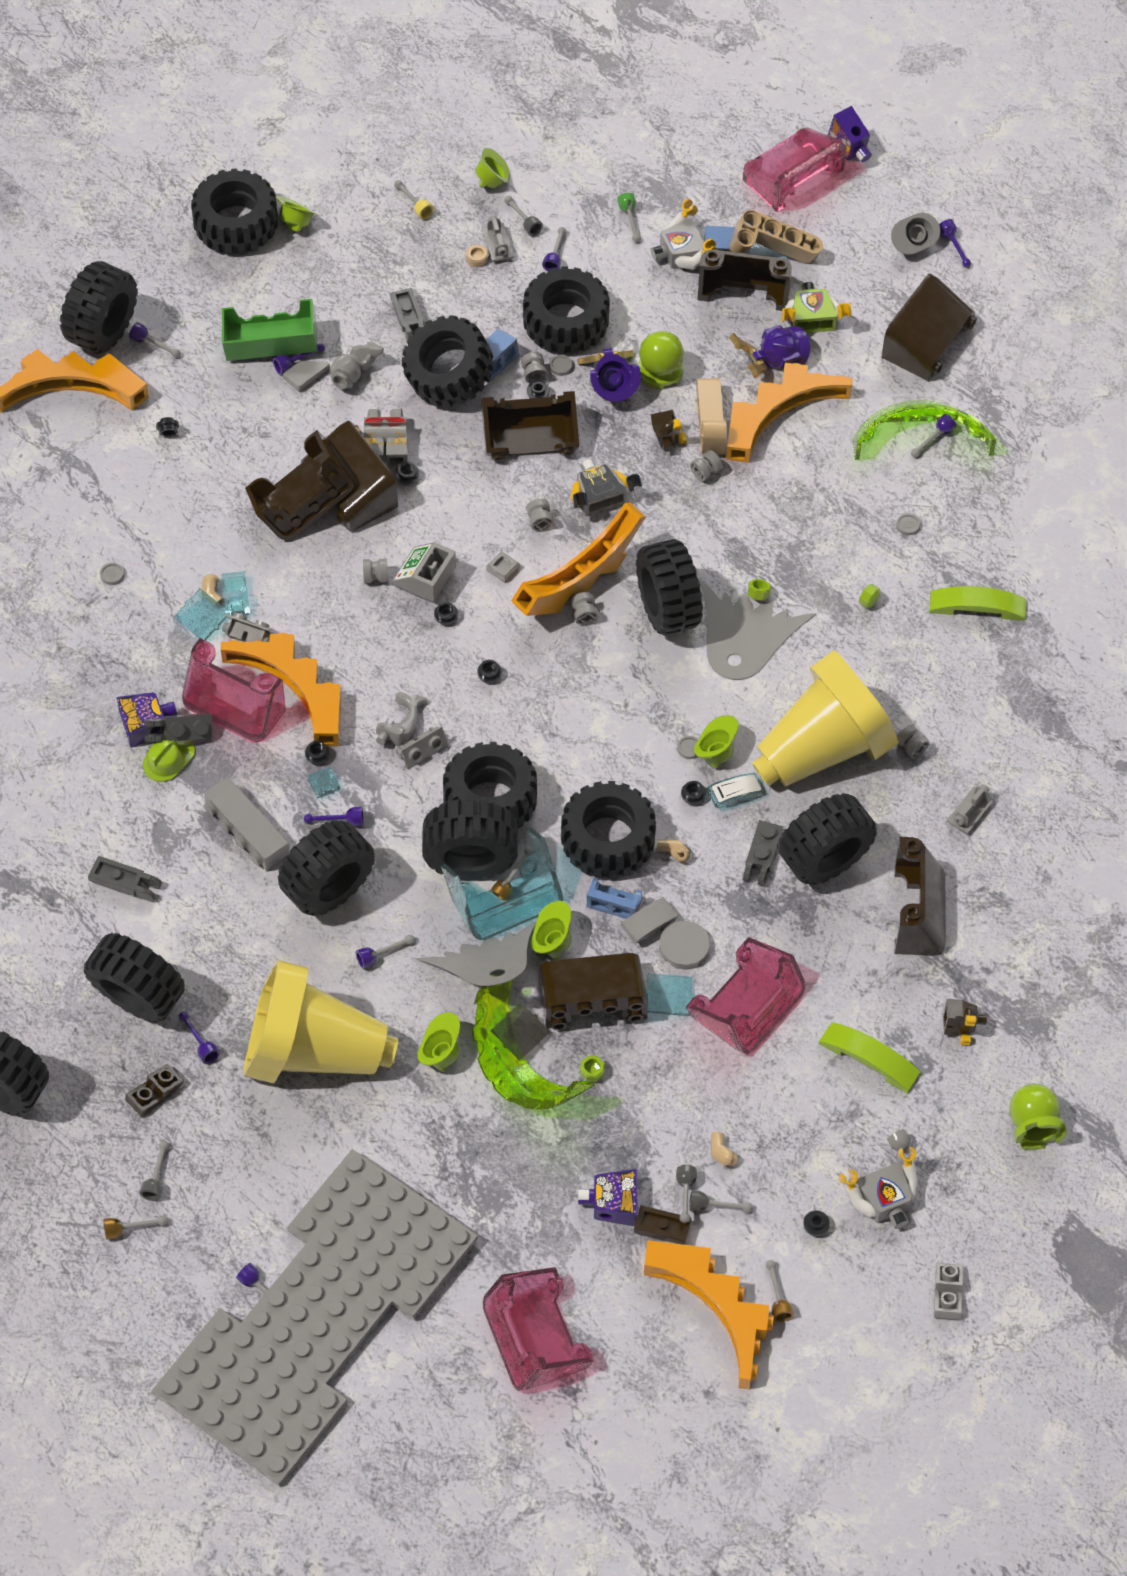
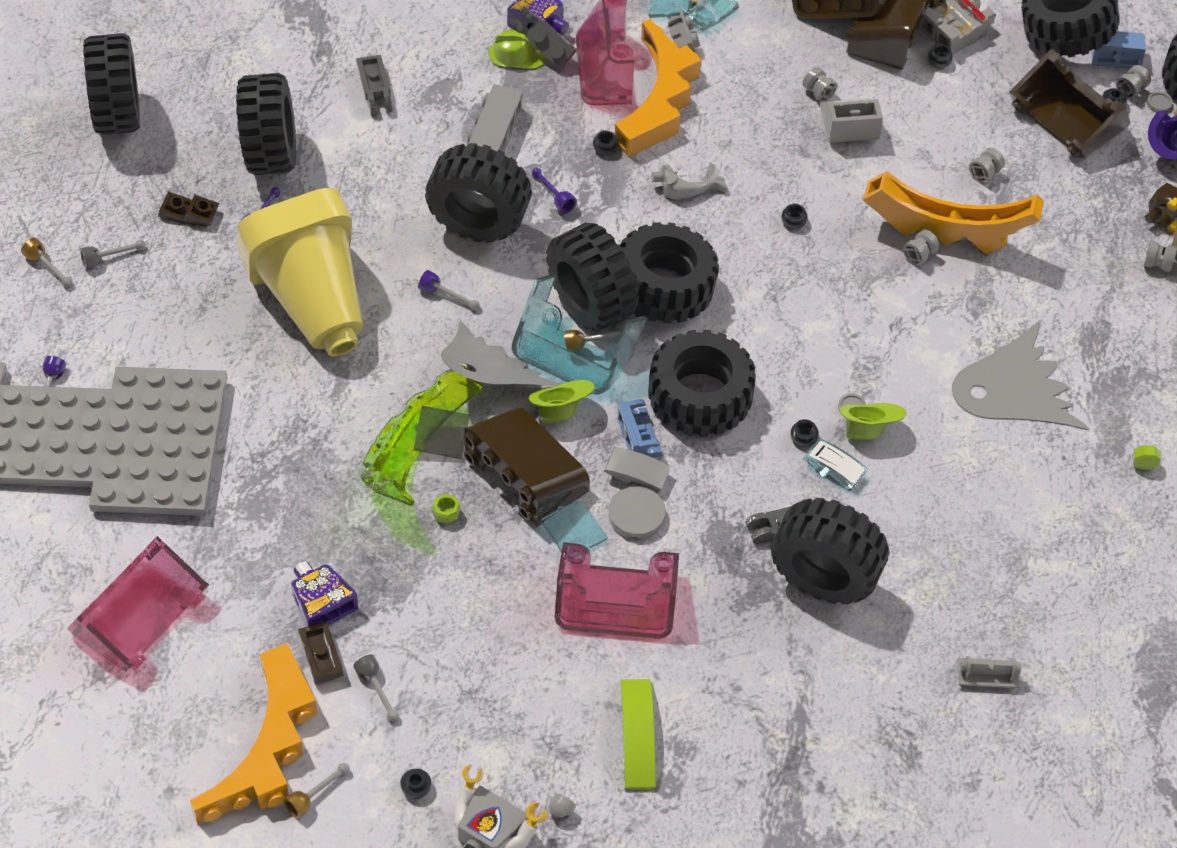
camera: 55 degrees right, 5 degrees down
(323, 782) = (581, 164): clear light blue tile -> none
(425, 746) = (674, 210): light grey hinge -> none
(440, 1042) = (379, 380): lime piece -> none
(446, 608) = (825, 155): black plate -> none
(503, 566) = (911, 170): light grey tile -> none
(601, 487) = (1057, 187): torso -> none
(669, 587) = (989, 282): black tyre -> none
(675, 848) = (733, 449): tan arm -> none
(686, 1177) = (385, 645): hinge -> none
(720, 1152) = (435, 658): tan arm -> none
(759, 589) = (1068, 367): lime tile -> none
(825, 726) = (960, 486): light yellow cone -> none
(912, 741) = (1017, 579): light grey wheel -> none
(922, 924) = (842, 685): dark brown windscreen -> none
(961, 1018) = (740, 787): dark brown piece -> none

